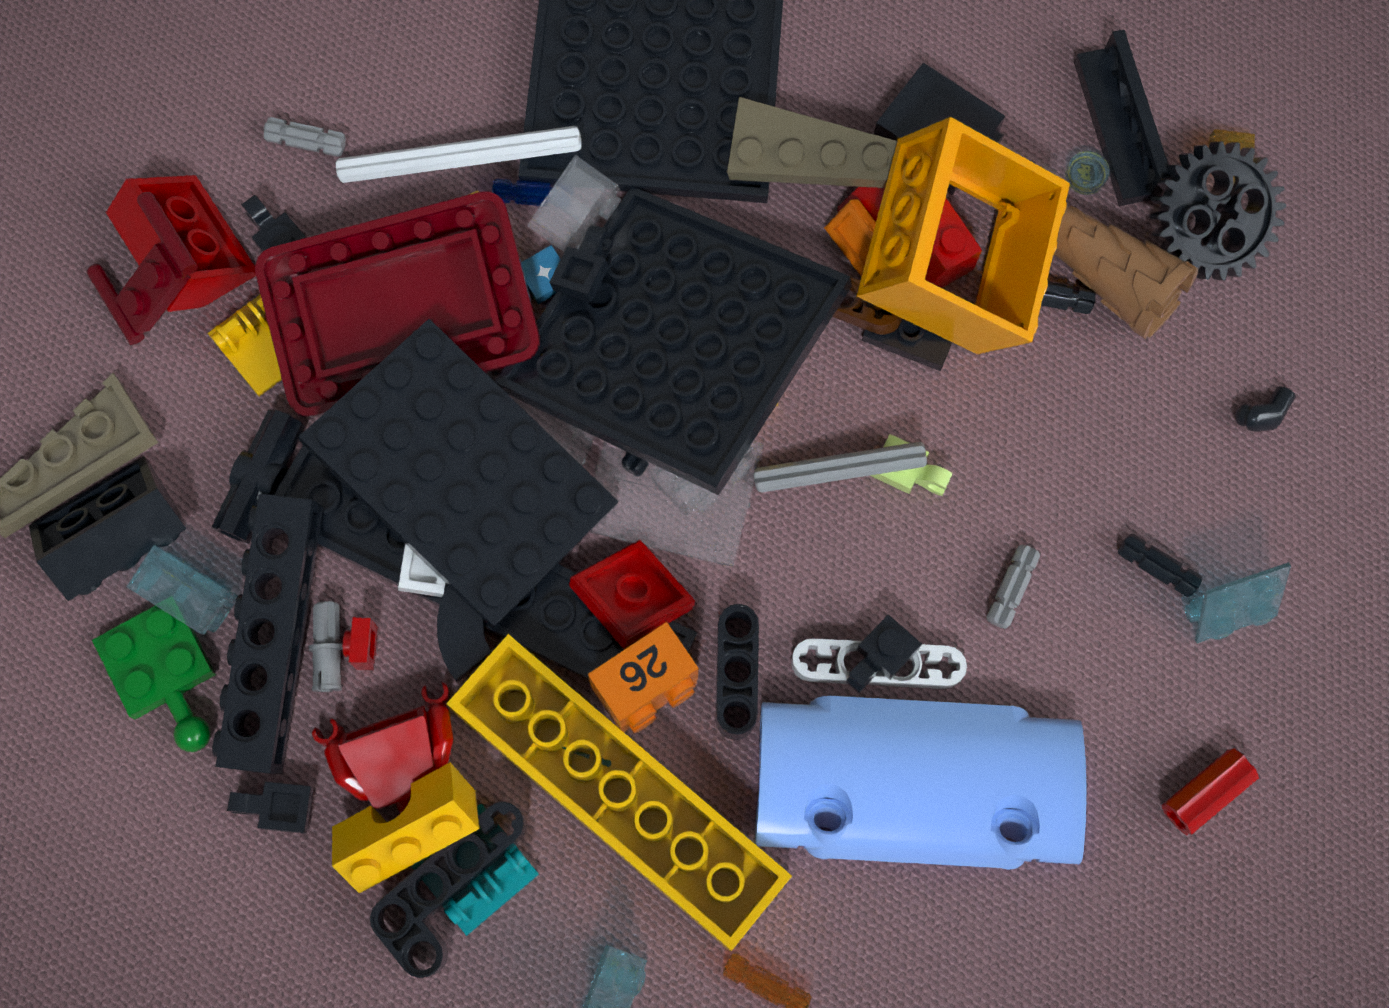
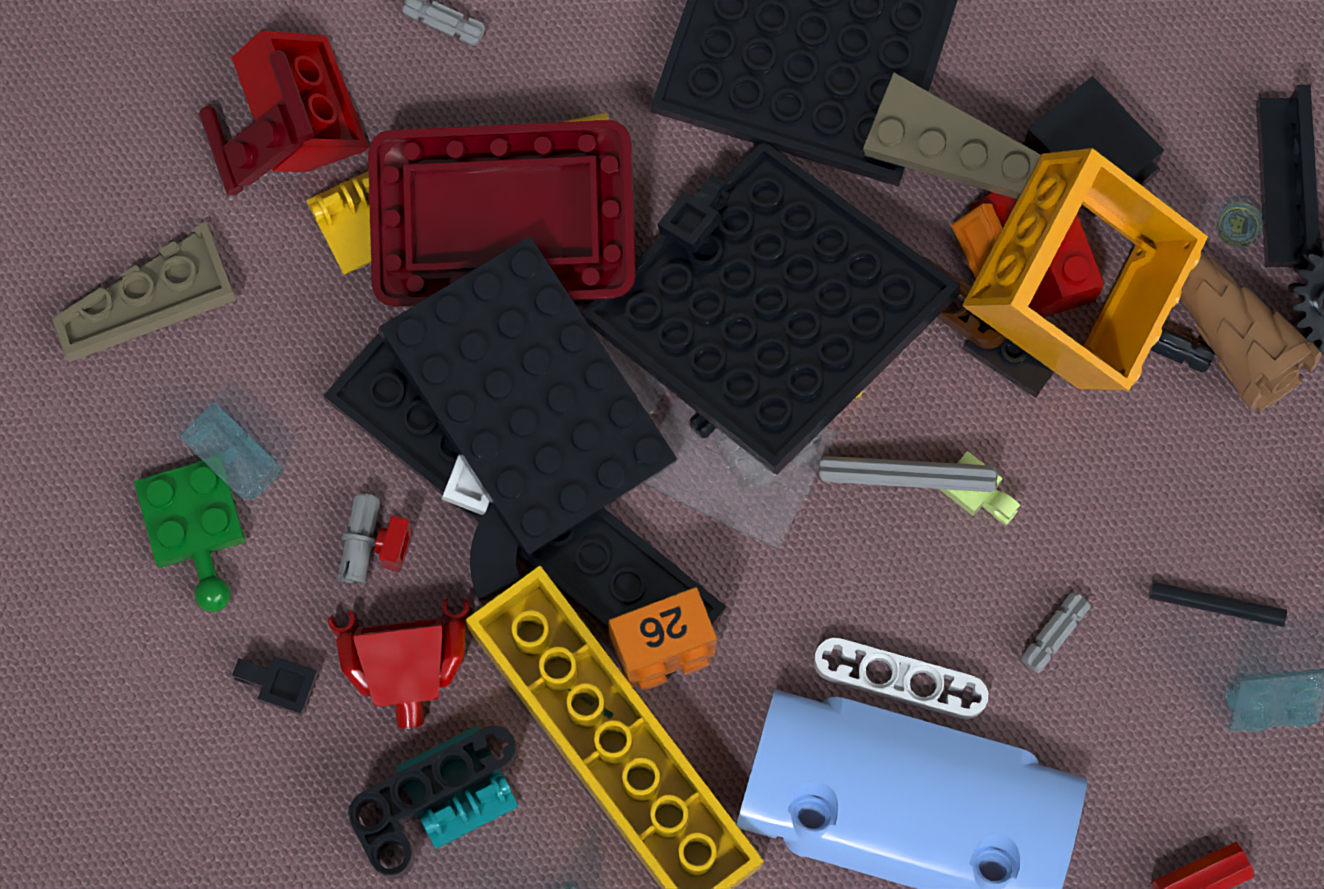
camera: 15 degrees right, 0 degrees up
(105, 529) = (169, 375): black slope -> none
(257, 472) = (327, 355): black piece -> none
(272, 231) = (392, 112): black plate -> none
(281, 656) = (281, 624): black brick -> none
(437, 815) = (432, 725): yellow arch -> none
(459, 154) = (595, 71): white axle -> none
(522, 191) = (662, 126): clear blue axle -> none
(538, 272) = (650, 209): dark azure tile -> none
(574, 204) = (700, 151): clear brick -> none
(631, 593) = (670, 552): red tile -> none
(741, 650) = (756, 632): black beam -> none
(884, 651) = (908, 666): black plate -> none
(1156, 525) = (1217, 604): none -> black bar
(1160, 565) = (1210, 644): black axle -> none

